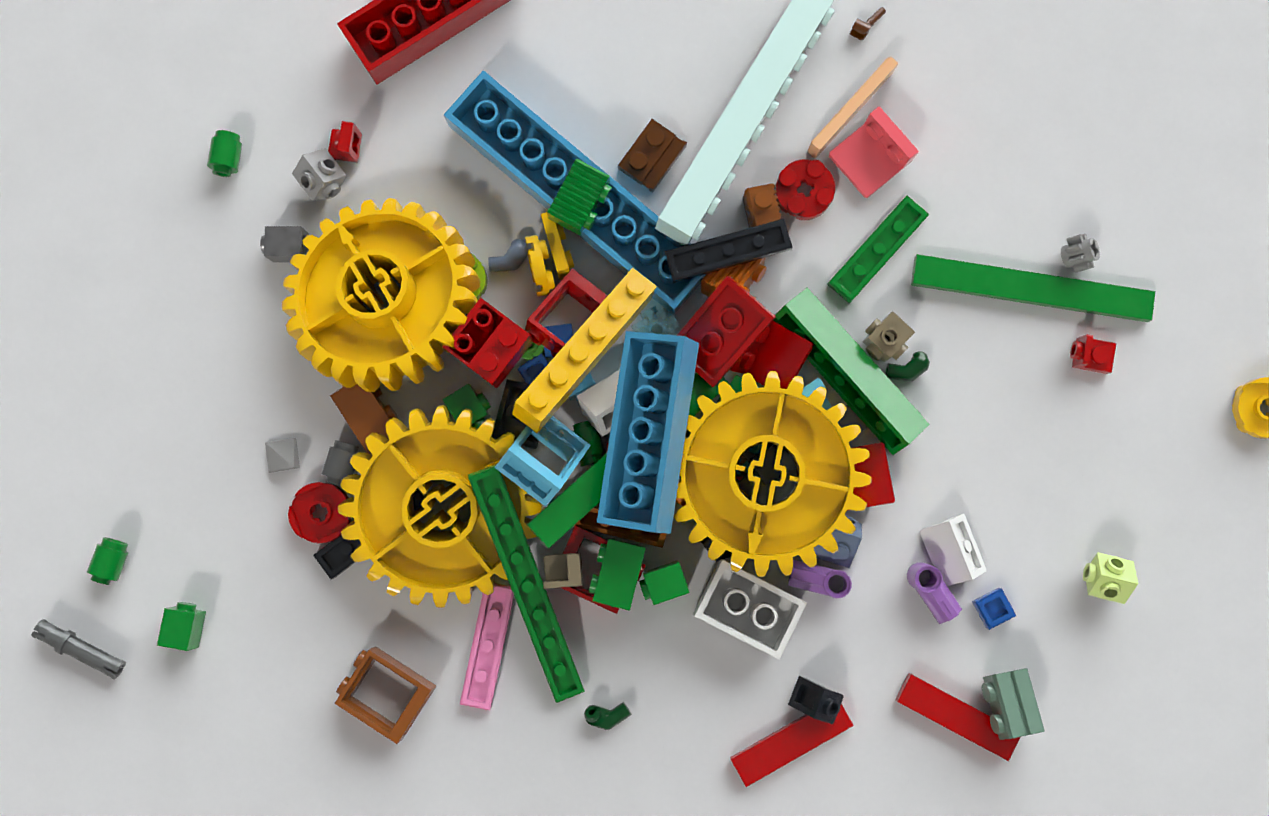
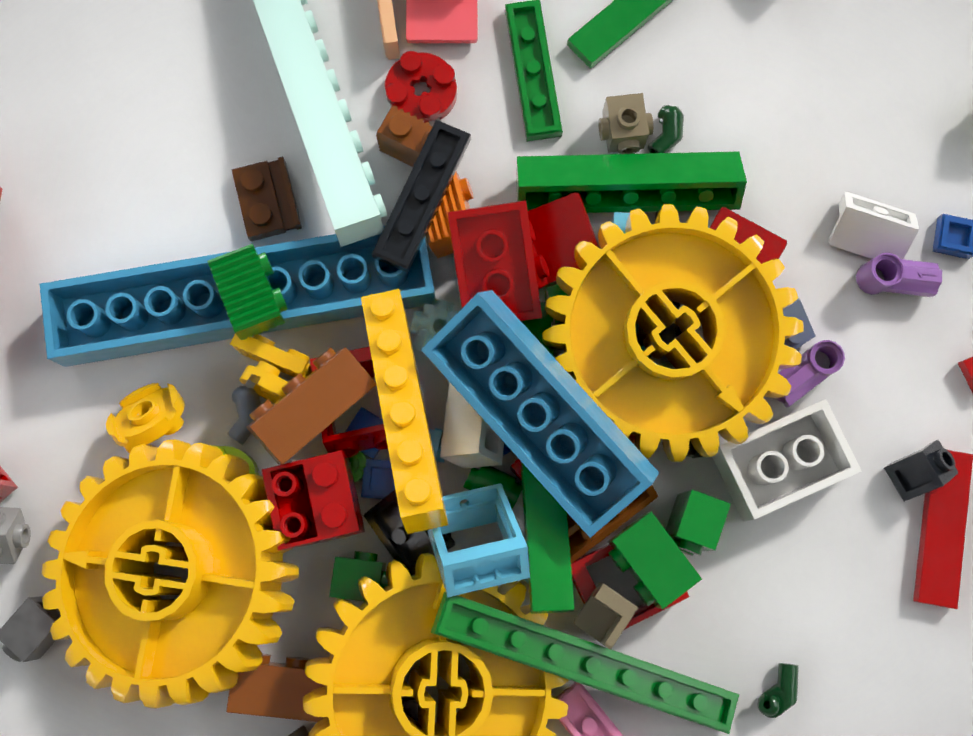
camera: 55 degrees left, 5 degrees down
(459, 201) = (146, 416): none -> yellow plate
(542, 292) = (310, 404): none -> dark orange brick

